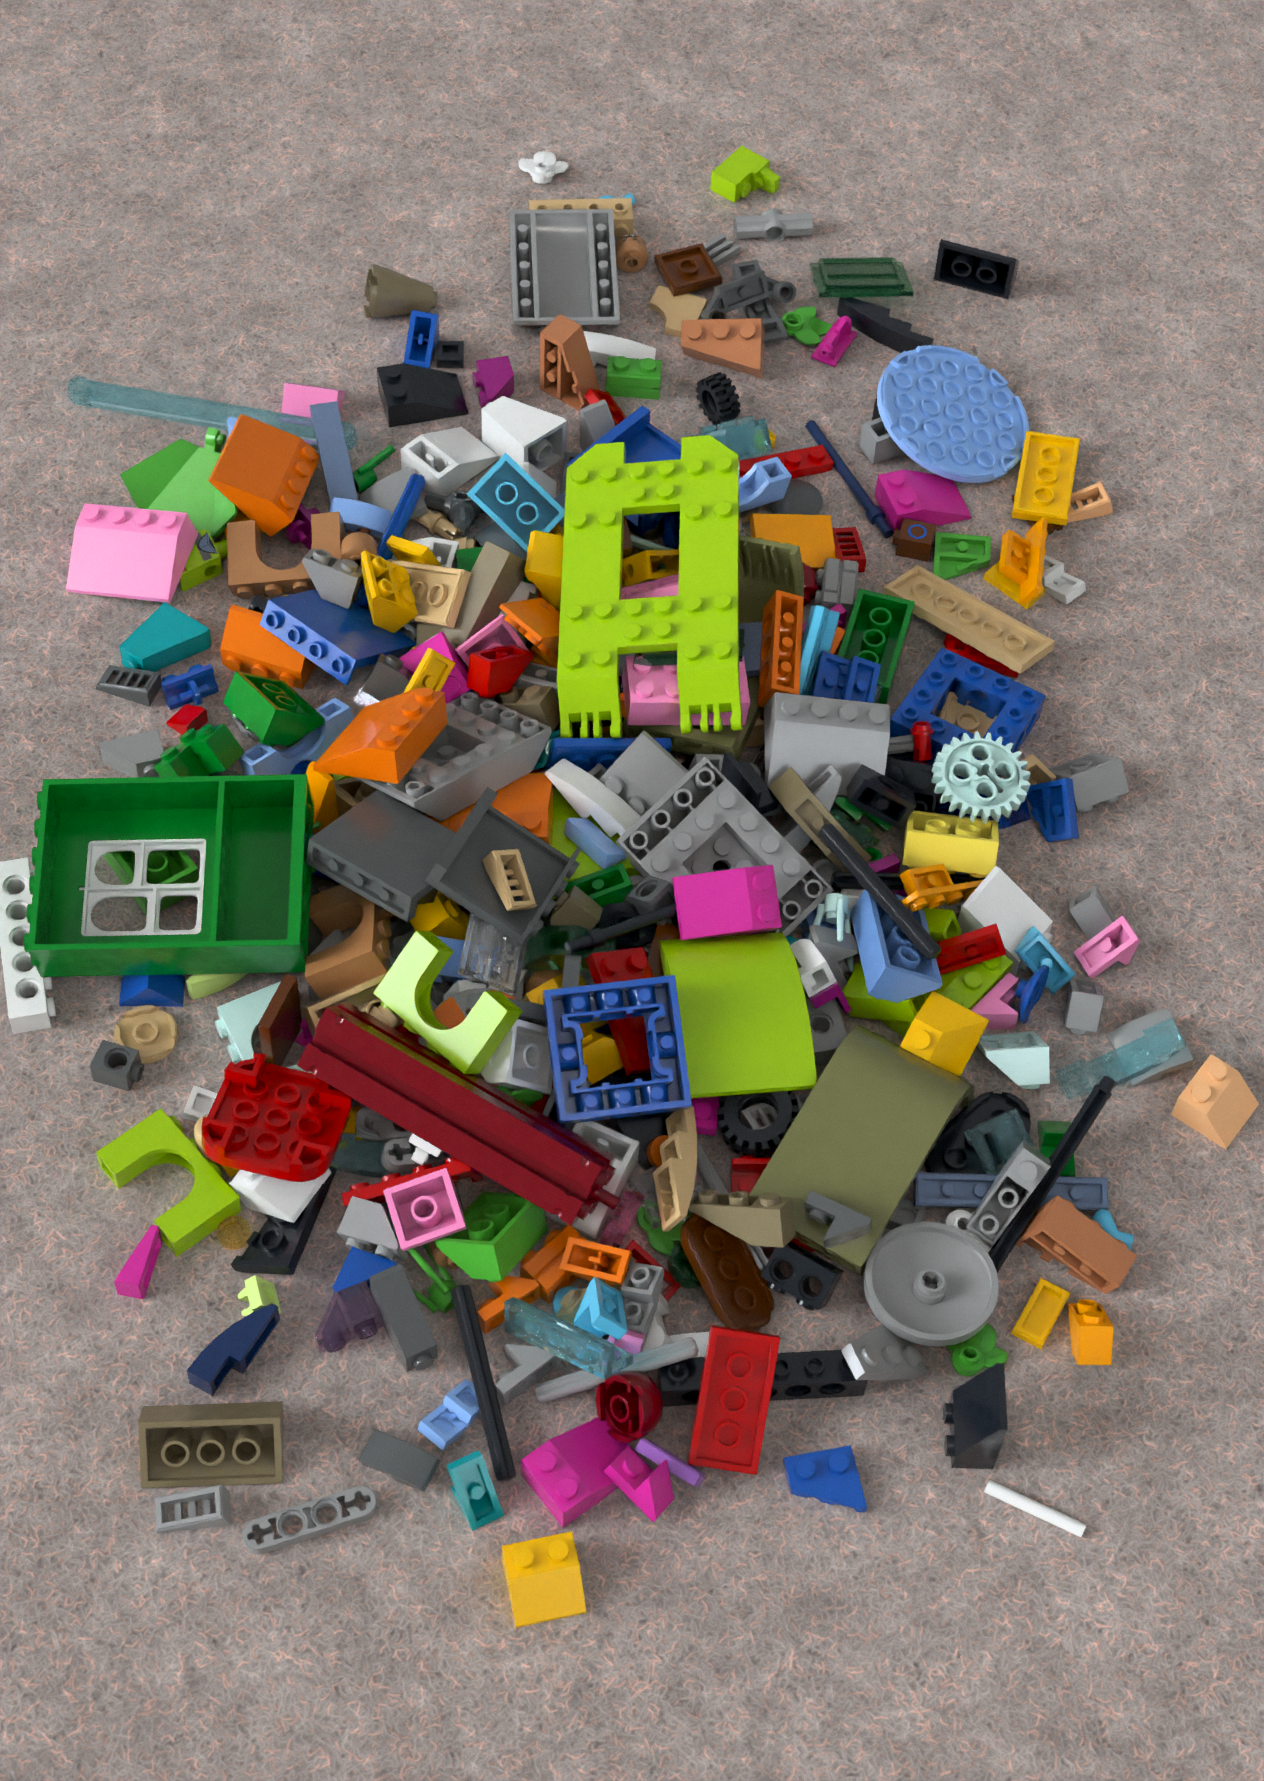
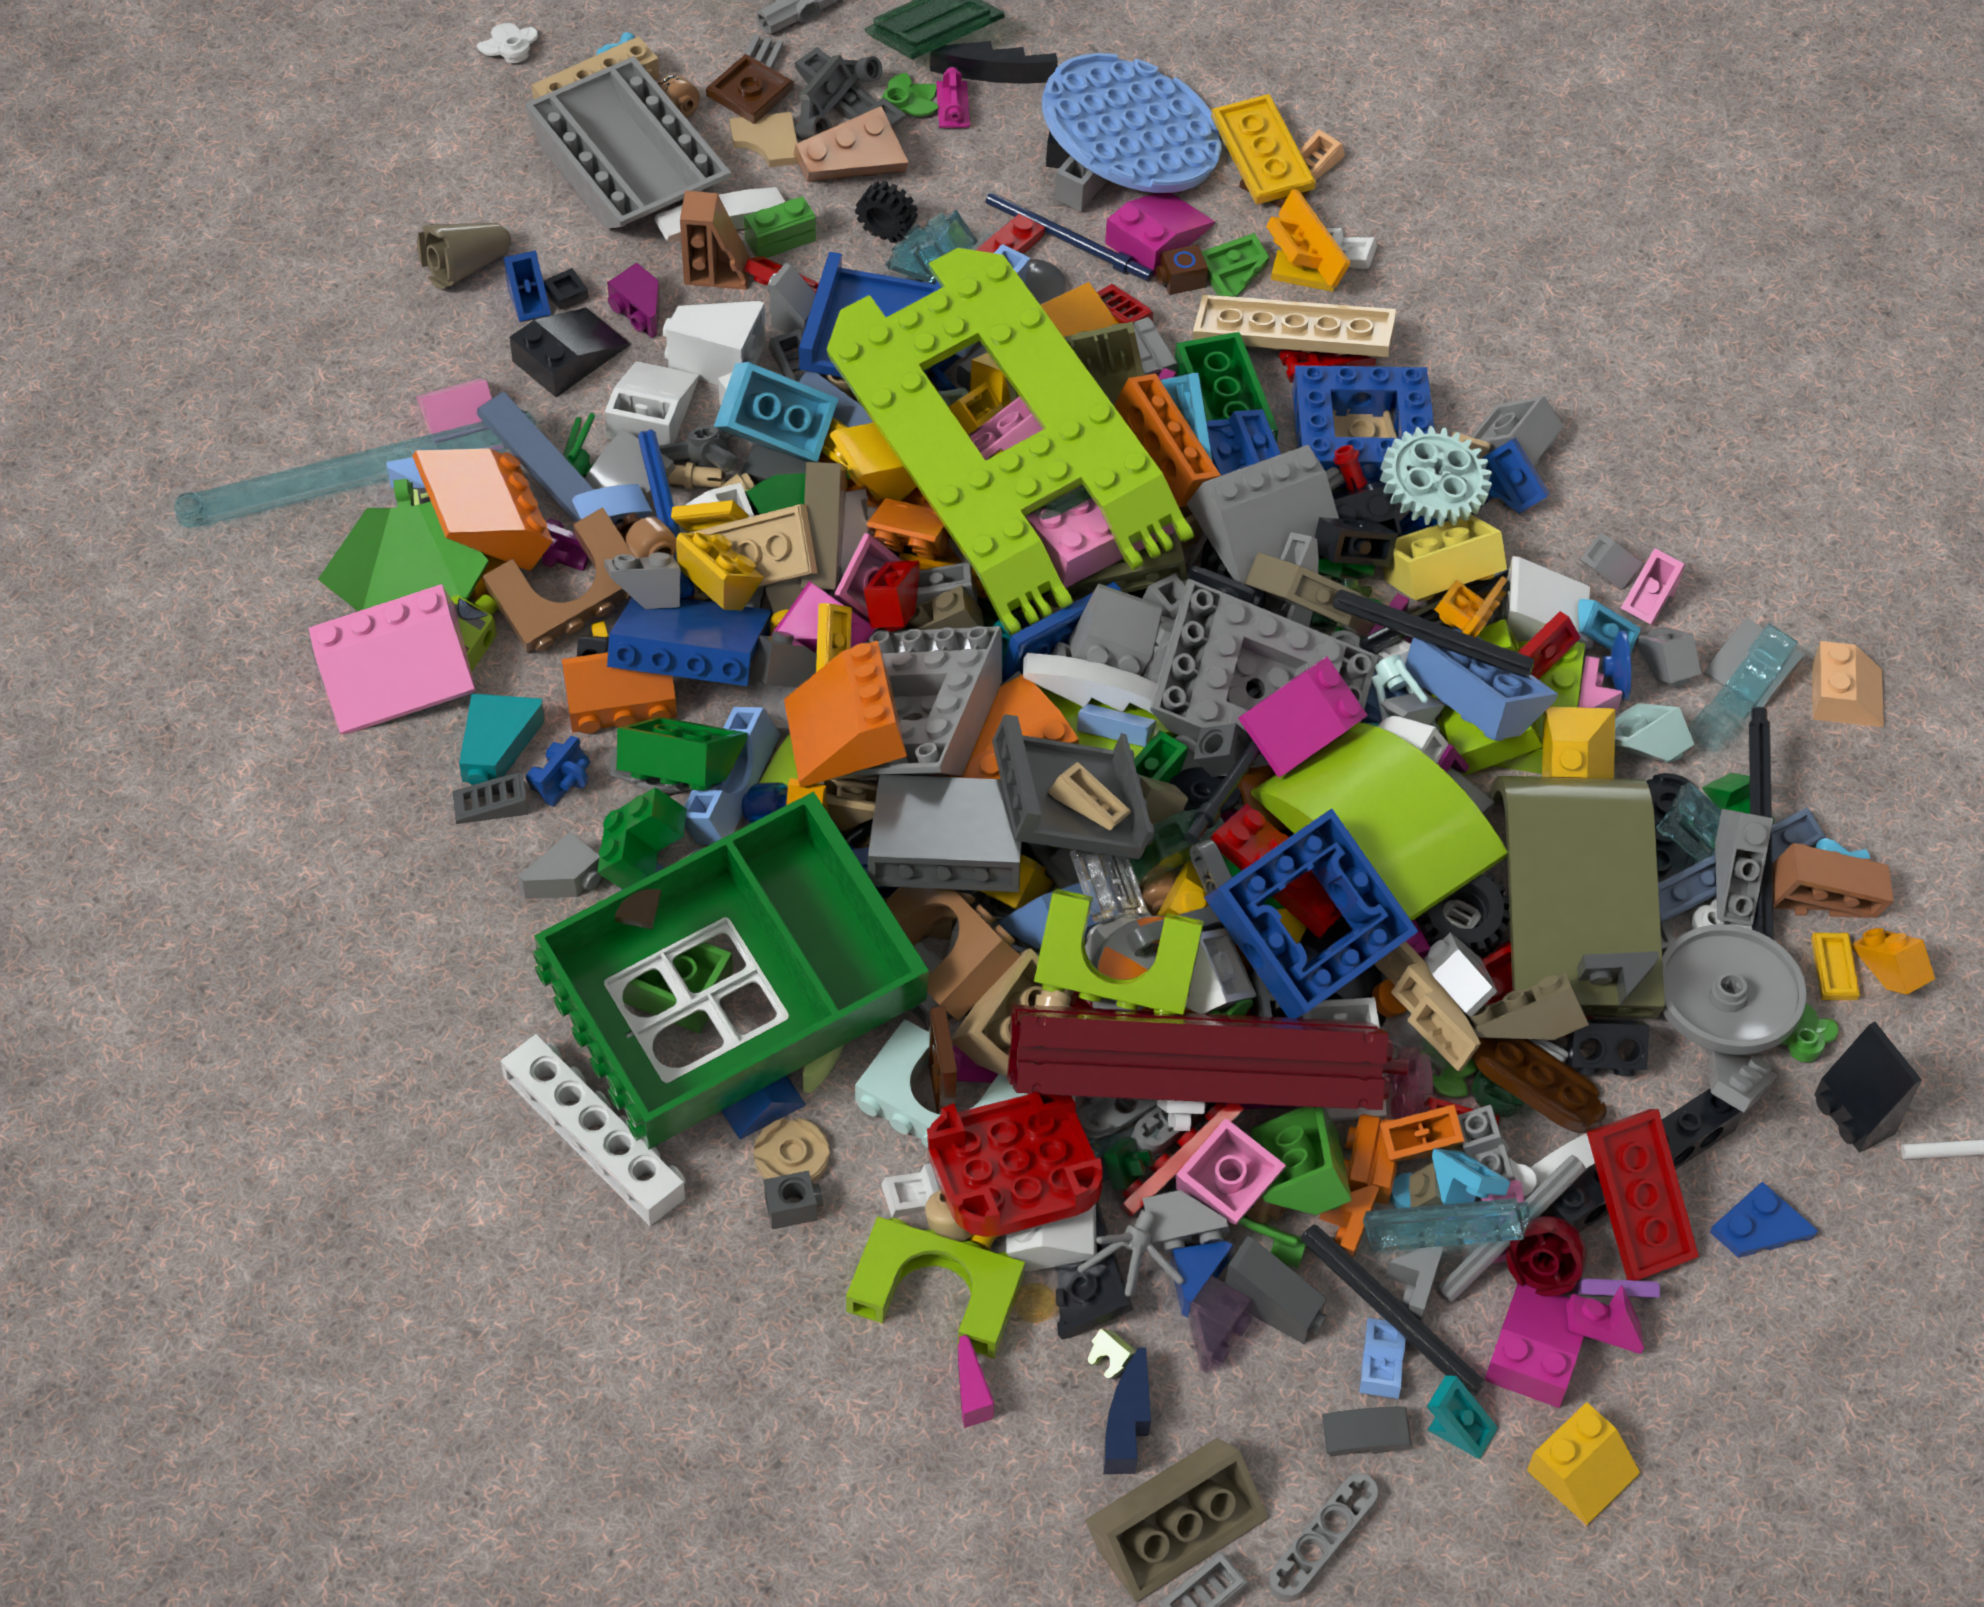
camera: 30 degrees left, 0 degrees up
(125, 796) = (640, 908): none -> dark brown tile
(188, 718) = (582, 807): red slope -> none
(324, 1225) = (1138, 1241): none -> light grey plant
(363, 1165) = (1126, 1163): none -> dark green tile
(715, 1156) = (1460, 973): none -> slope

